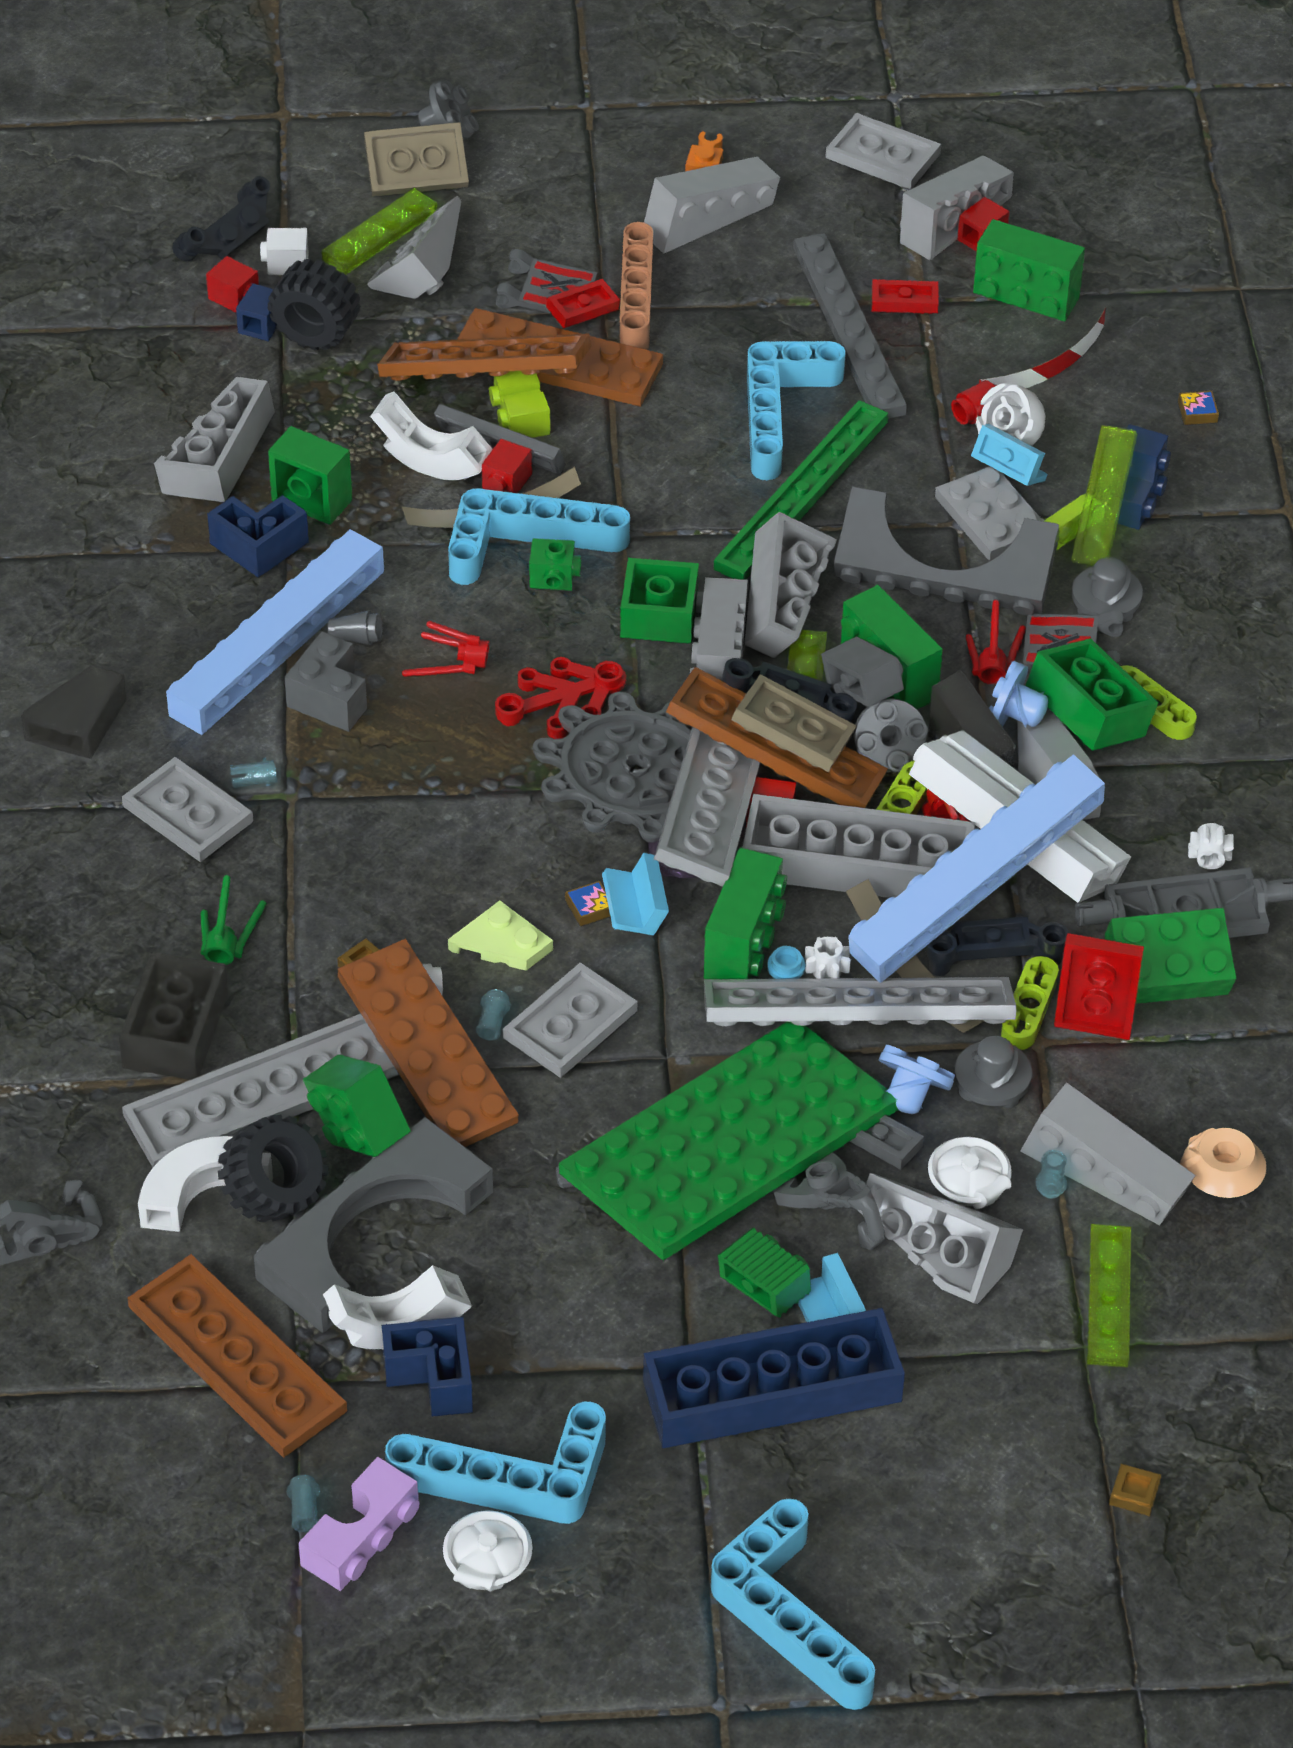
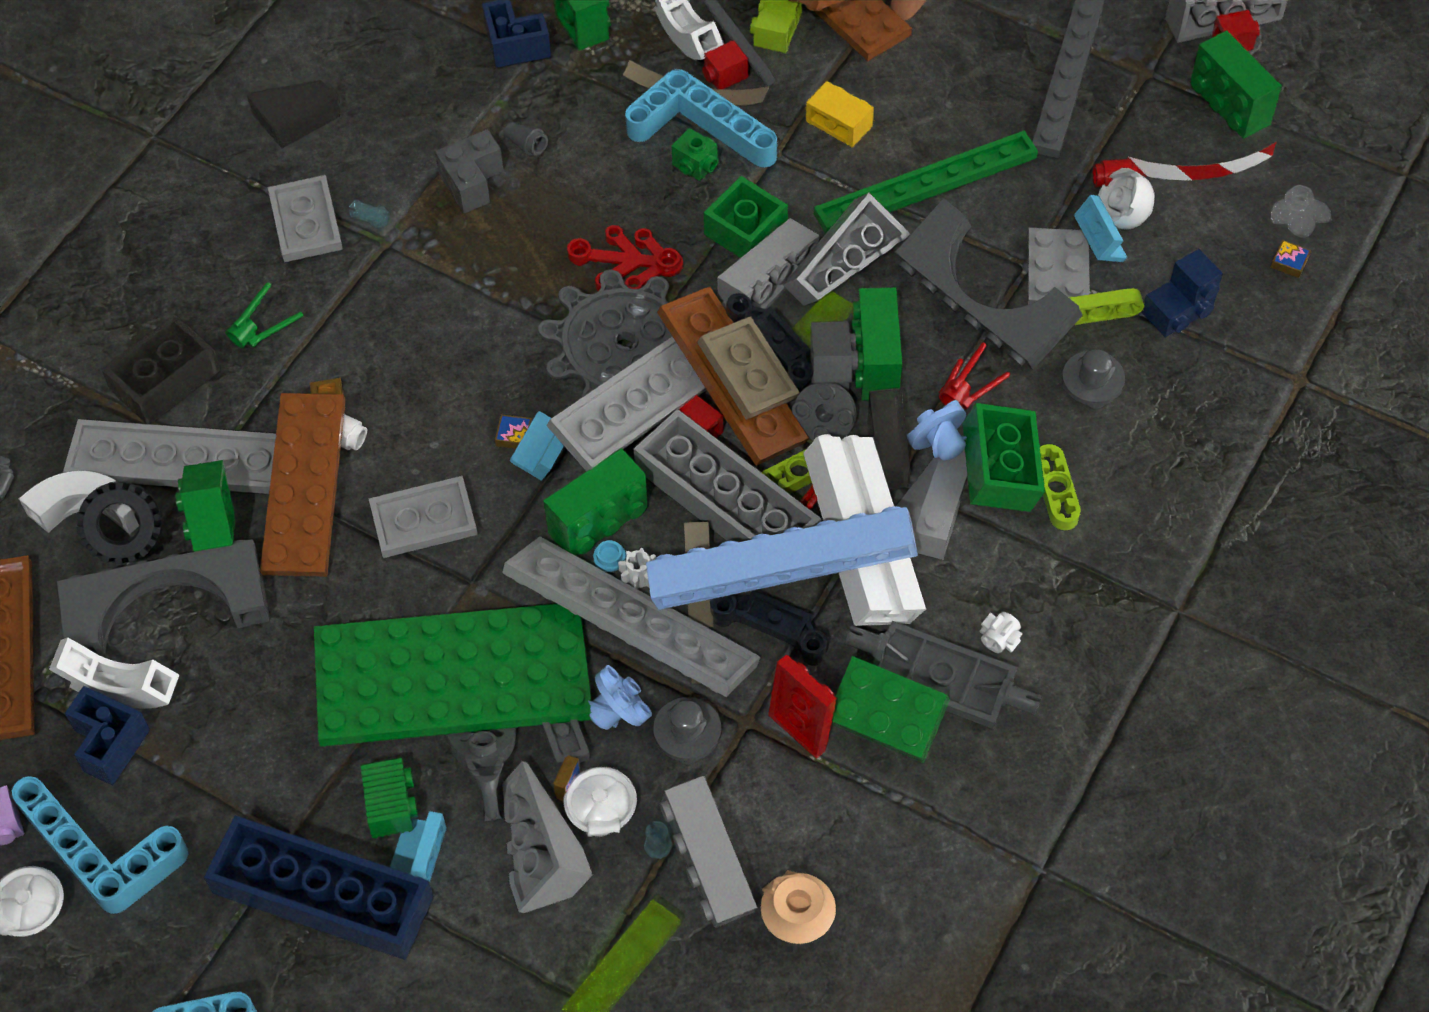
camera: 35 degrees right, 10 degrees up
(274, 632) = (469, 113): light blue brick -> none
(471, 651) = (587, 193): red plant -> none
(495, 1006) = (376, 482): clear light blue pin -> none
(503, 937) = (432, 426): yellowish green wing -> none
(662, 464) = (839, 114): none -> yellow brick
(776, 366) = (974, 74): medium azure beam -> none
(905, 296) = (1129, 63): red plate -> none
(920, 1167) = (569, 769): none -> pearl gold tile
(1028, 989) = (765, 672): lime beam -> none
(1055, 630) = (1032, 392): dark grey flag -> none
(1104, 495) = (1139, 298): clear neon green plate -> none
(1173, 361) = (1300, 211): none -> clear plate

